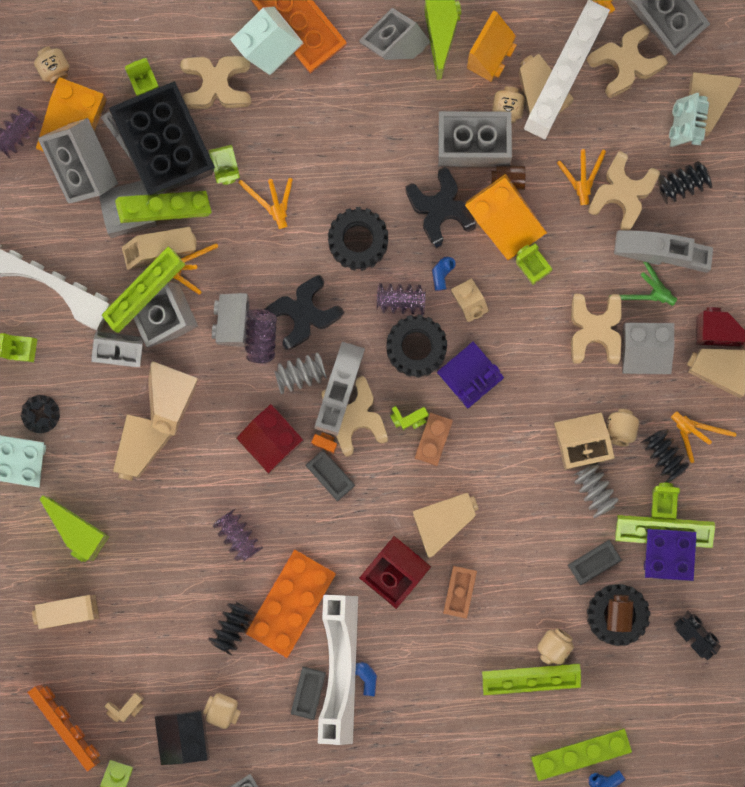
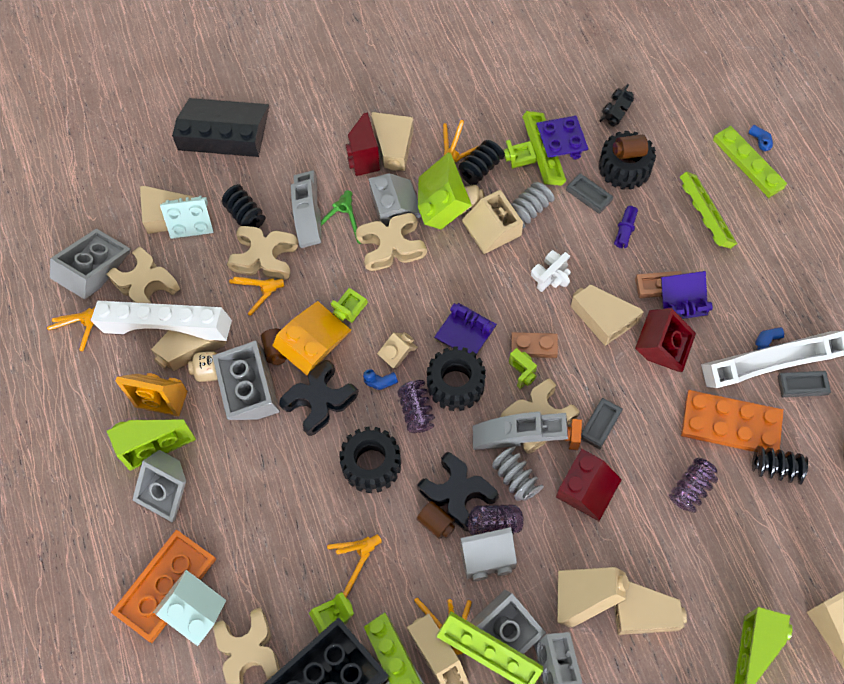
camera: 105 degrees left, 20 degrees down
(280, 284) = (436, 520): none -> reddish brown brick
(435, 609) = (686, 294): none -> dark purple hinge
(515, 494) = (555, 274): none -> white hips
(538, 584) = (626, 227): none -> dark purple axle
(555, 647) = (673, 199): tan head -> none
(636, 396) = (441, 193): none -> lime slope

